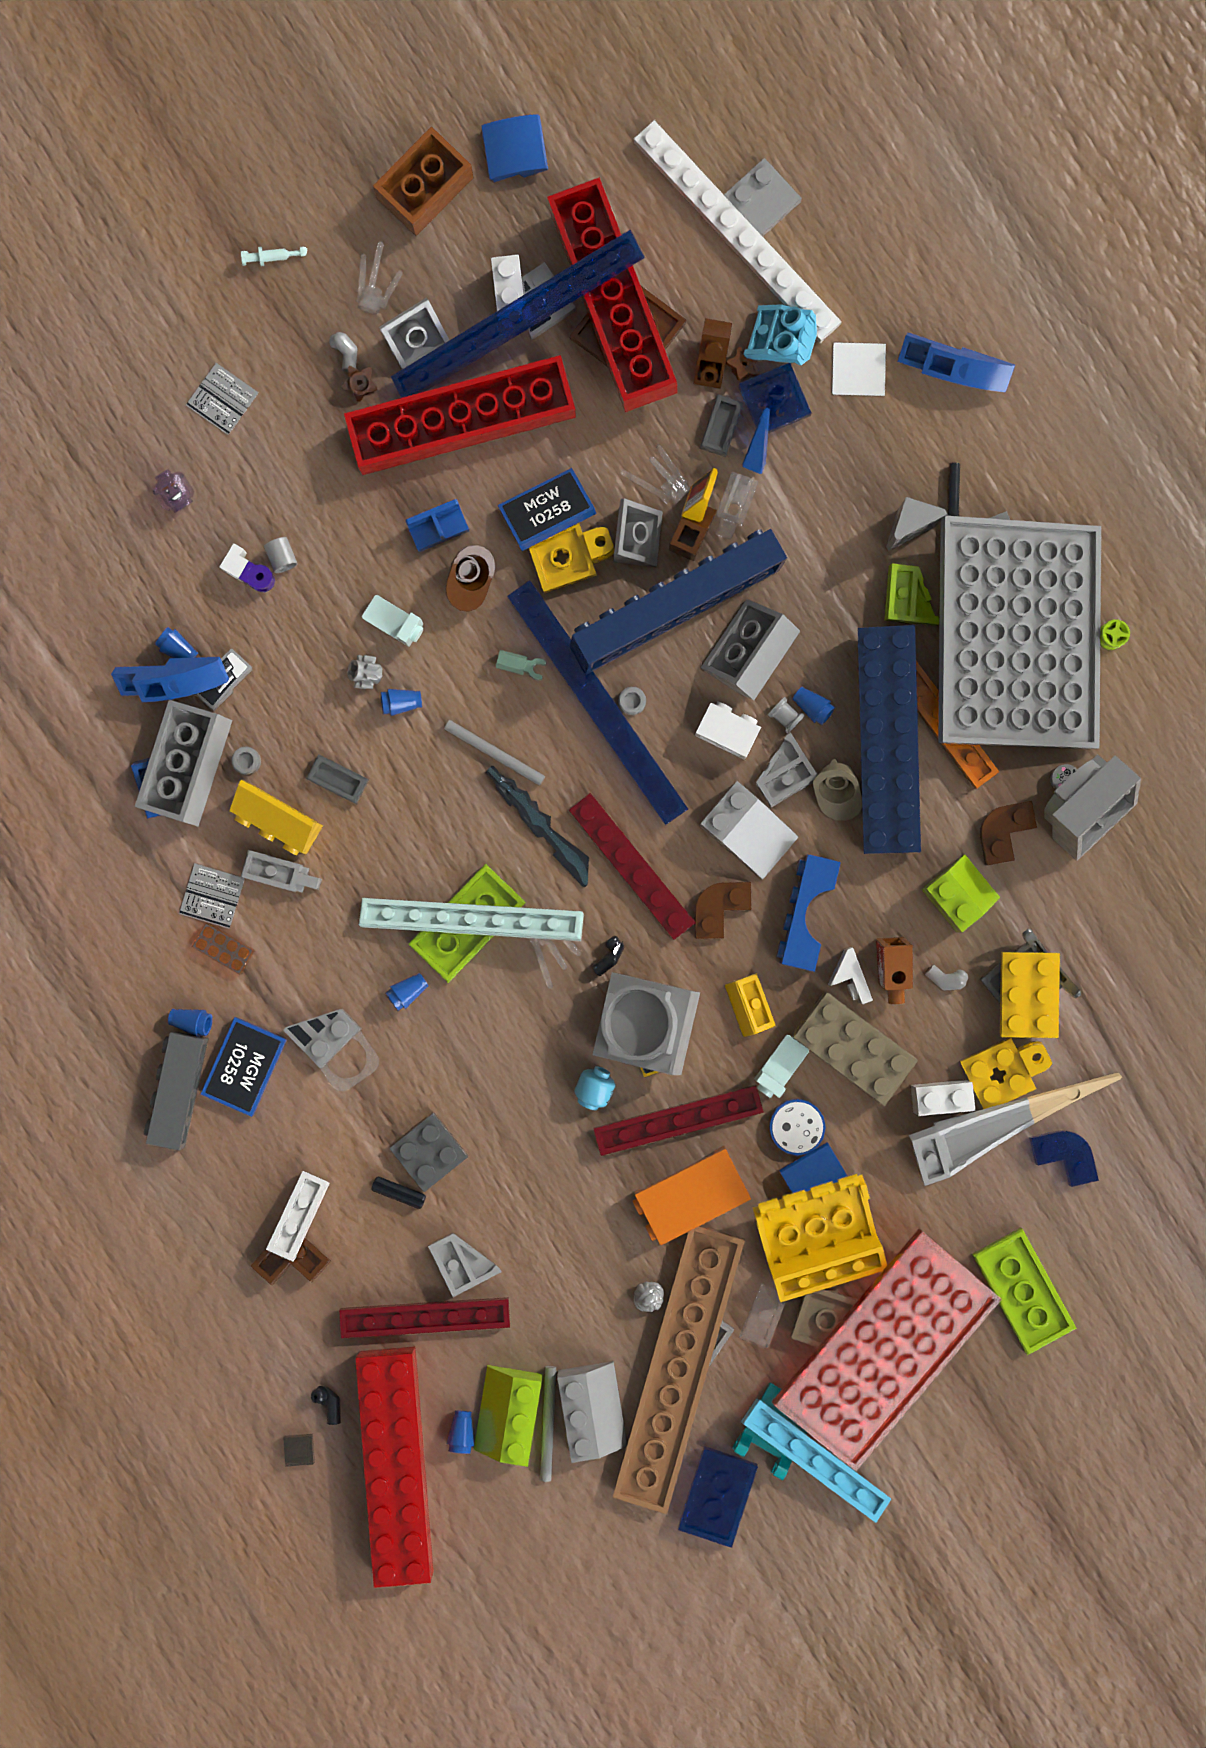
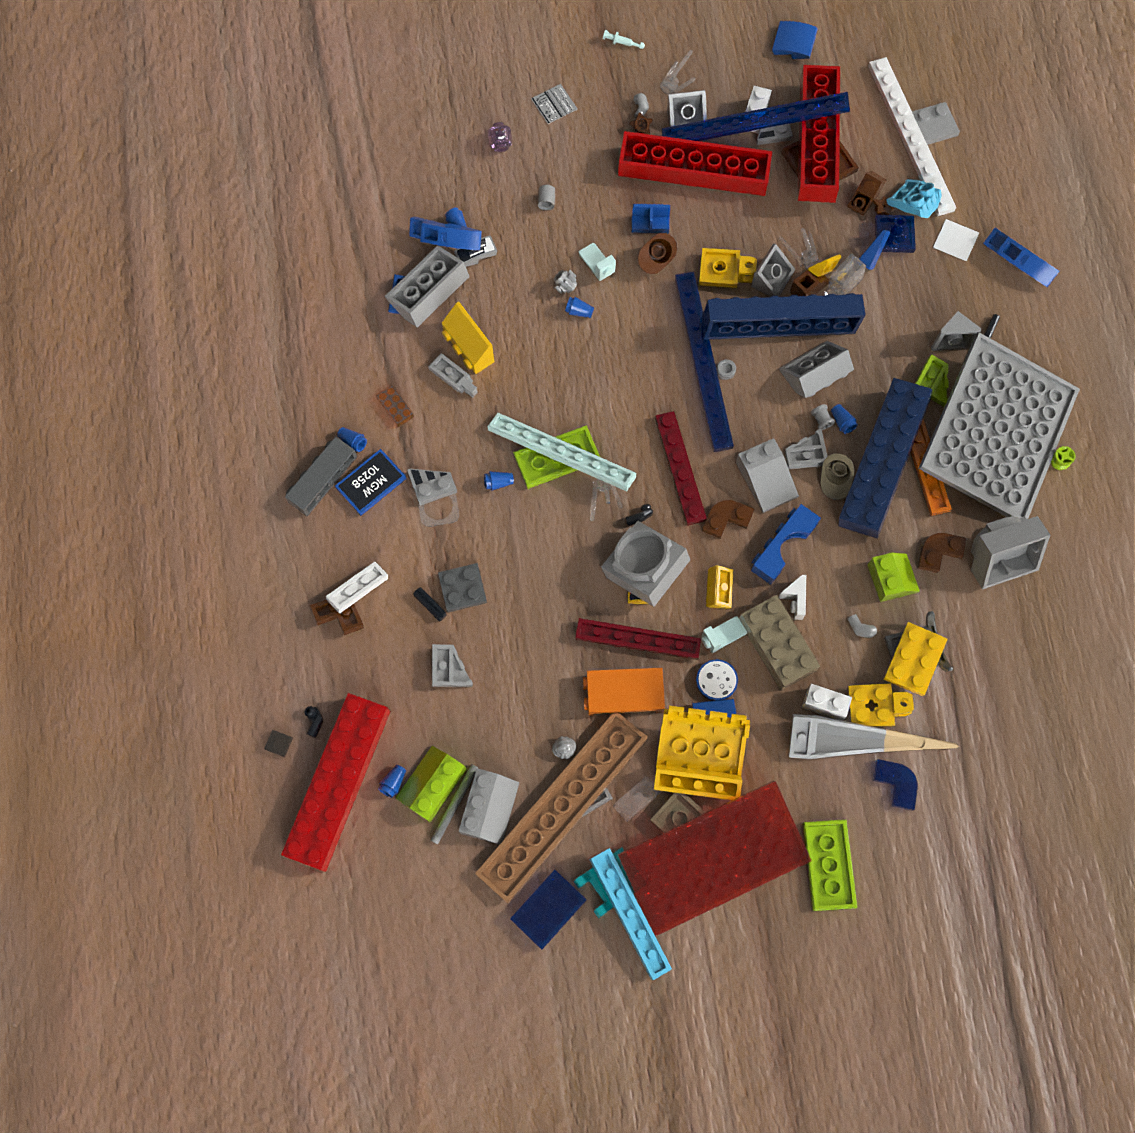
camera: 25 degrees right, 15 degrees down
(211, 896) = (404, 373): light grey sticker -> none
(246, 760) = (467, 302): light grey tile -> none
(256, 576) = (522, 200): leg -> none
(337, 779) = (517, 338): dark grey tile -> none
(423, 181) = (732, 33): dark orange brick -> none
(424, 1317) = (407, 692): dark red plate -> none
(494, 752) = (623, 363): light grey bar -> none
(519, 664) = (664, 318): sand green bar -> none
(540, 824) = (632, 417): black sword -> none
(547, 509) = (723, 237): black tile -> none
(594, 1088) = (592, 592): medium azure head -> none
(721, 425) = (854, 236): dark grey tile -> none
(728, 730) = (780, 410): white brick -> none
(892, 956) = (833, 594): dark orange torso -> none

